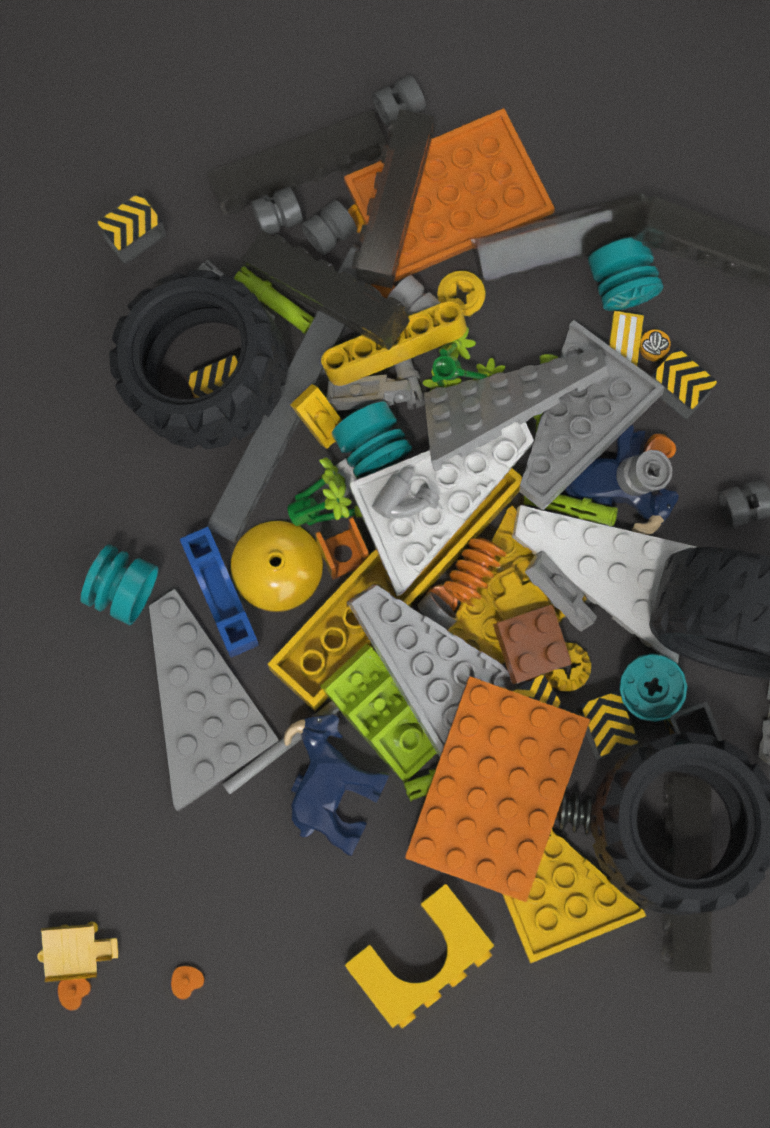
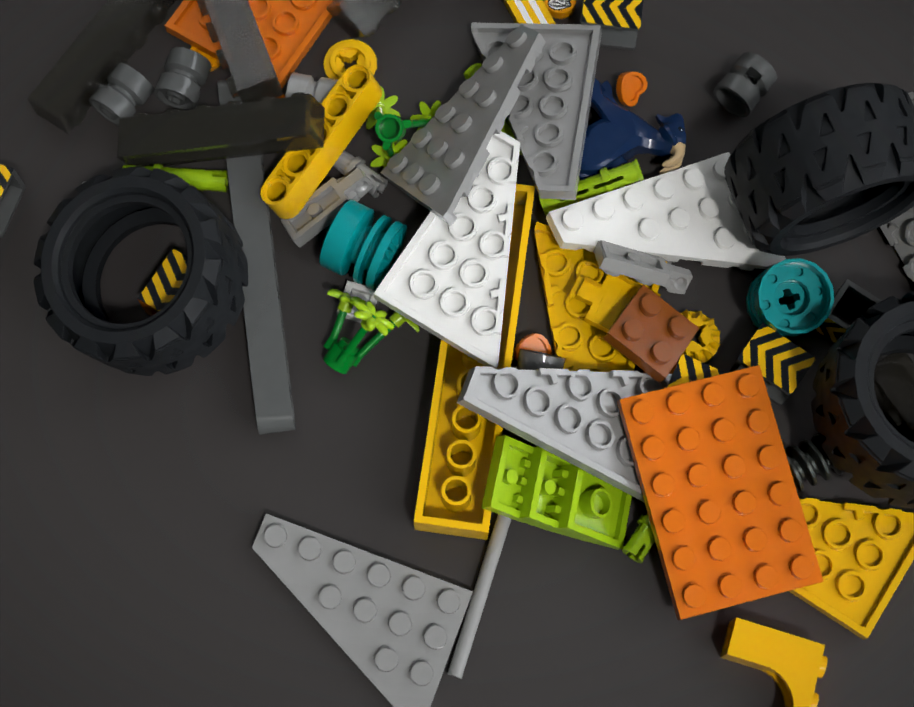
camera: 35 degrees left, 5 degrees down
(113, 582) = (208, 544): teal wheel -> none
(219, 592) = (325, 494): blue arch -> none
(280, 586) = (353, 449): yellow dish -> none
(317, 414) = (293, 255): yellow plate -> none
(325, 783) = (550, 602): dark blue animal -> none
(349, 538) = (410, 350): orange piece -> none
(394, 492) = (425, 282): light grey plant -> none
(473, 570) = (545, 301): orange piece -> none
(644, 473) = (641, 108): light grey wheel -> none

